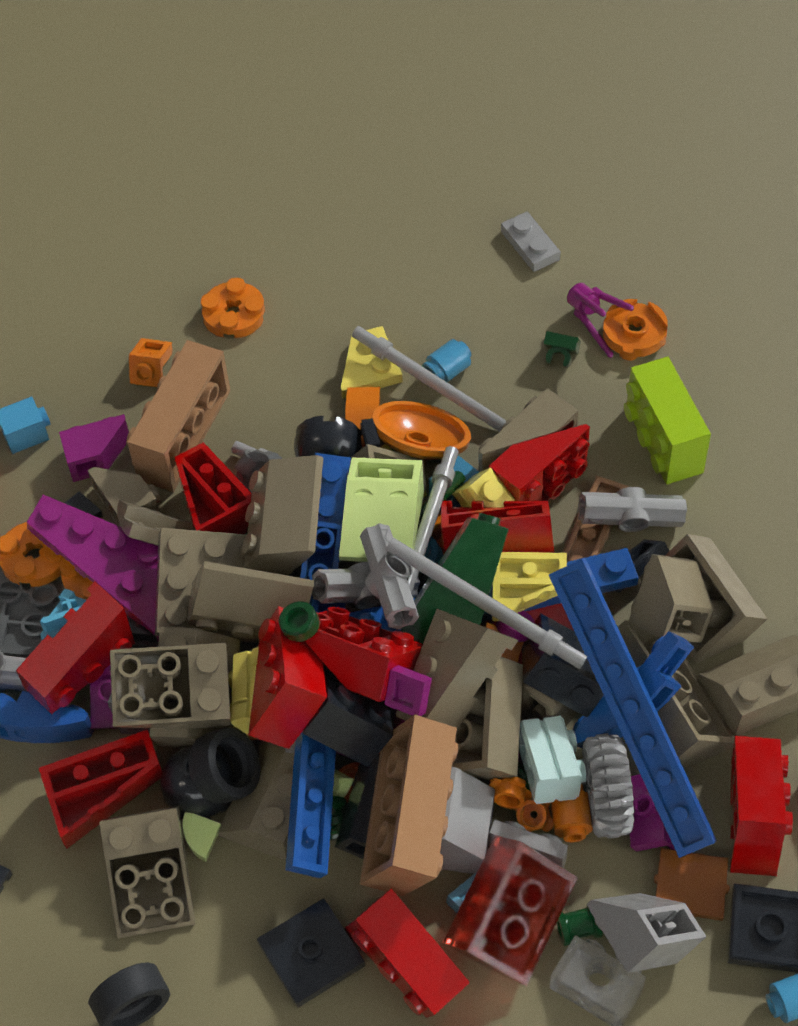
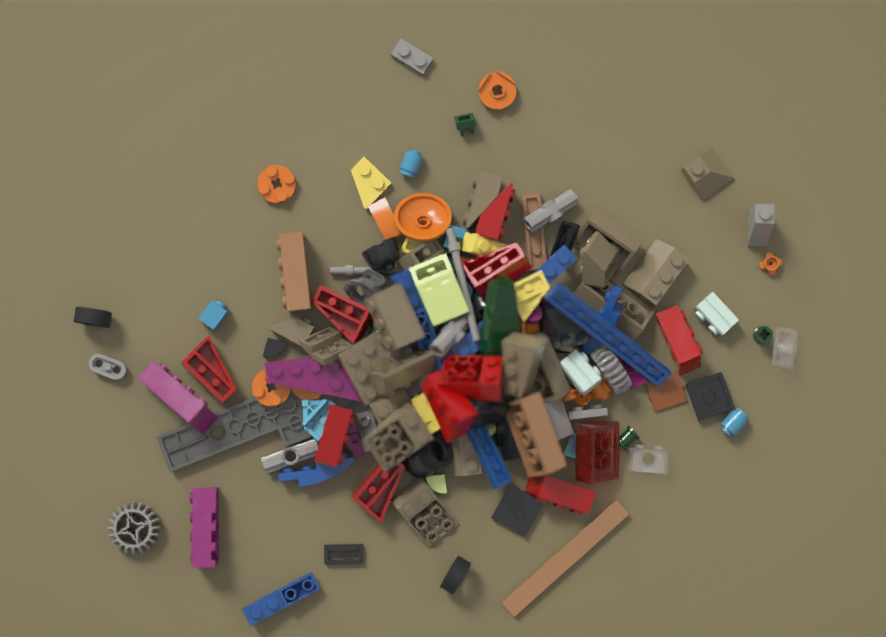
camera: 30 degrees left, 30 degrees up
(94, 445) = (259, 310): magenta slope -> none
(147, 361) = (254, 241): orange bracket -> none
(299, 621) = (445, 383): dark green tile -> none
(369, 432) = (405, 243): black tile -> none
(384, 349) = (375, 177): light grey bar -> none
(388, 577) = (467, 331): light grey piece -> none
(408, 691) = (511, 389): magenta plate -> none
(549, 642) = (559, 327): light grey bar -> none
(587, 302) = (463, 88): magenta plant -> none
(646, 929) = (658, 428): light grey slope -> none
(667, 420) = (544, 150): lime piece -> none

